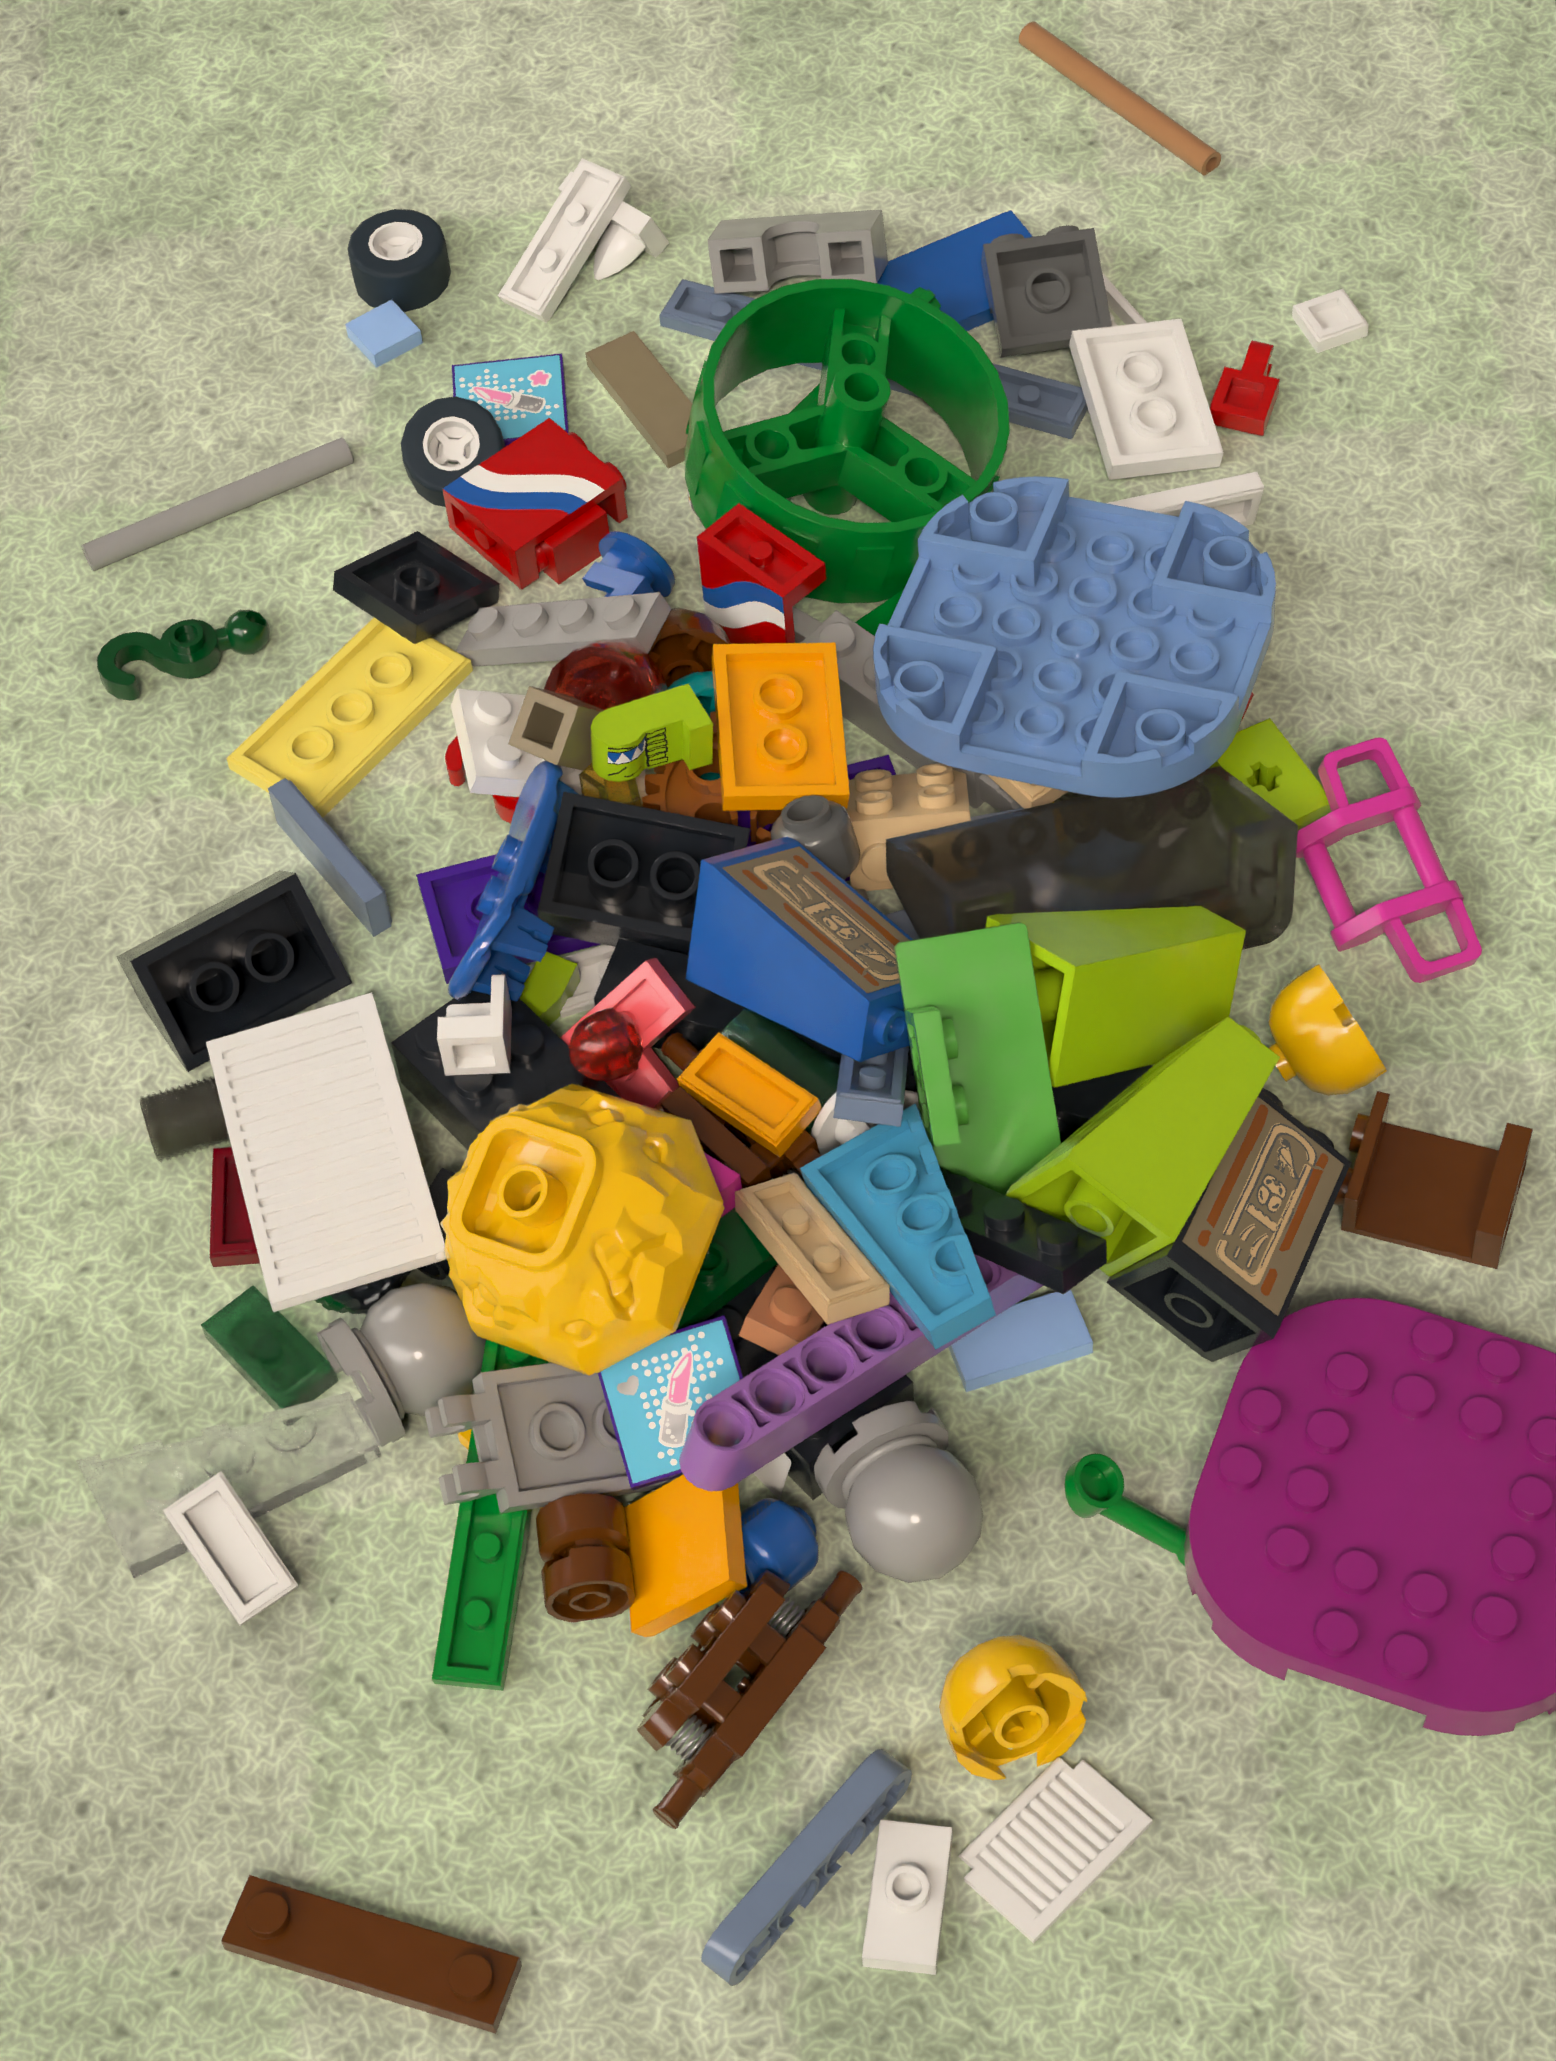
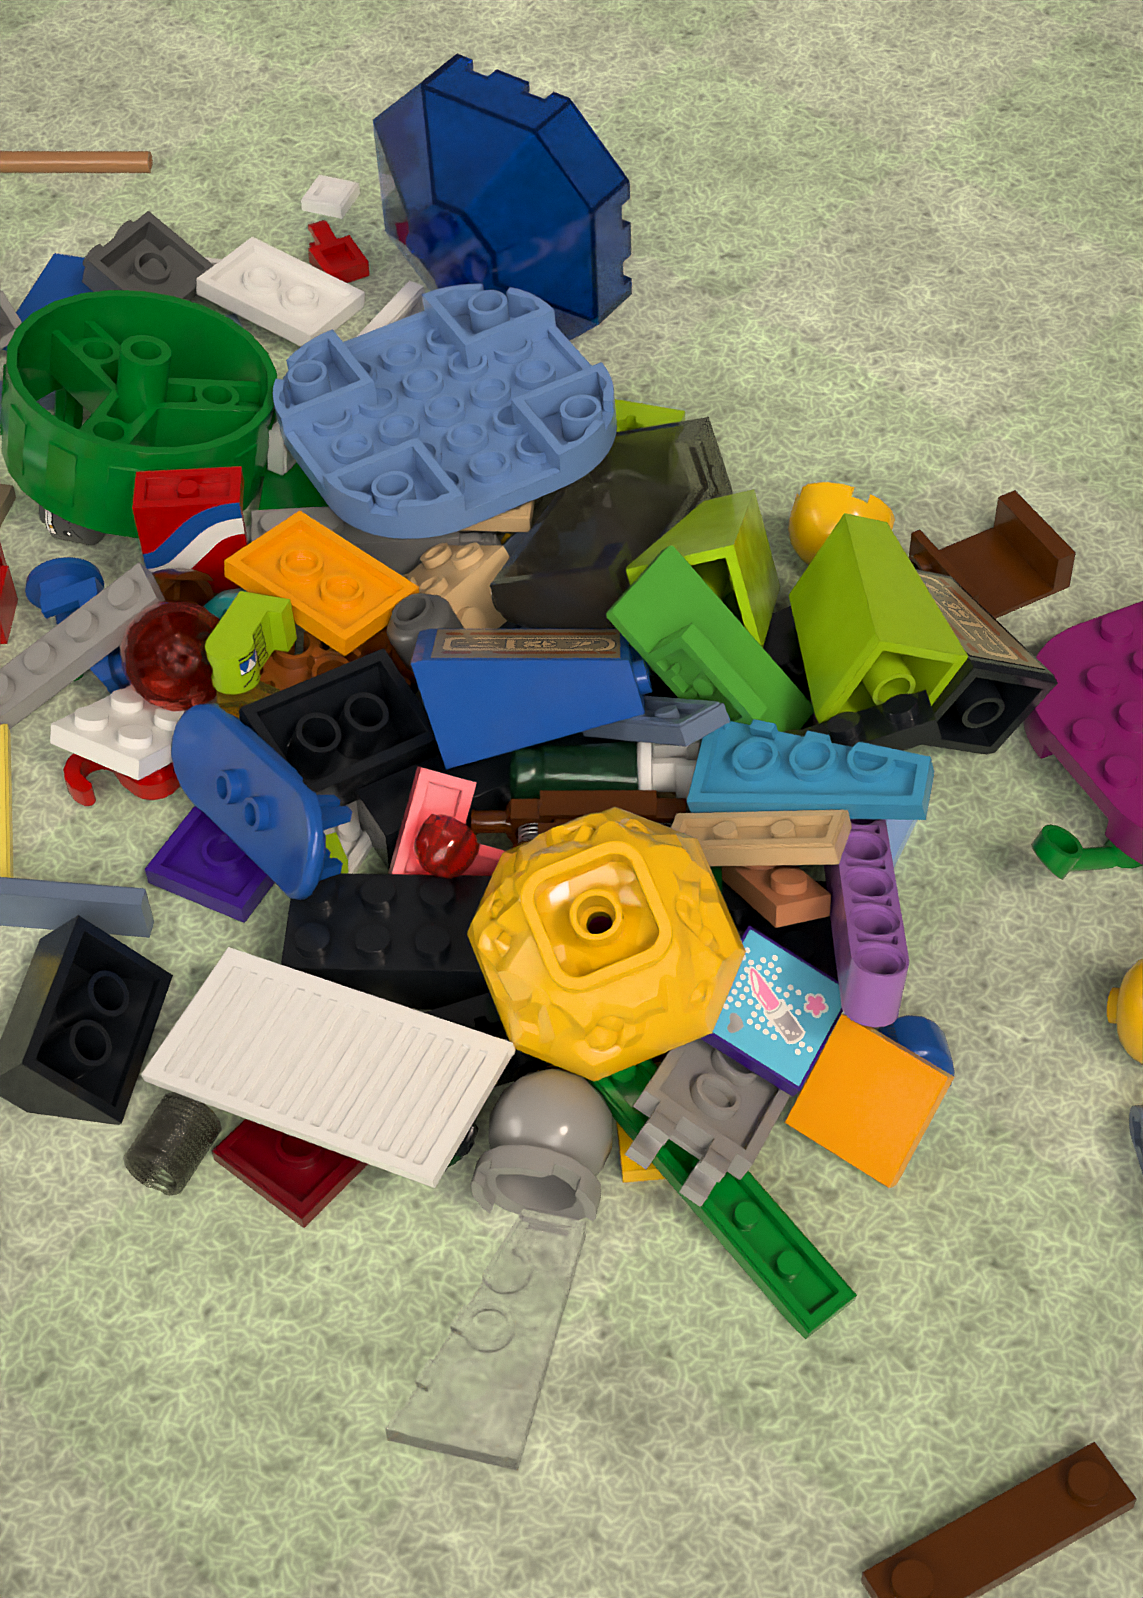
camera: 50 degrees left, 5 degrees down
(230, 1548) = (573, 1379): white tile -> none
(269, 1351) = (427, 1238): clear green plate -> none
(477, 1035) = (354, 903): white panel -> none
(555, 728) = (177, 681): dark tan brick -> none
(585, 1557) = (796, 1151): reddish brown wheel -> none
(733, 1719) = (1005, 1151): reddish brown piece -> none
(749, 1094) = (580, 790): light orange tile -> none
(903, 1494) = (969, 952): light grey tile -> none
(1338, 462) = (504, 193): none -> clear blue windscreen
(1389, 916) = (798, 421): dark pink bar -> none

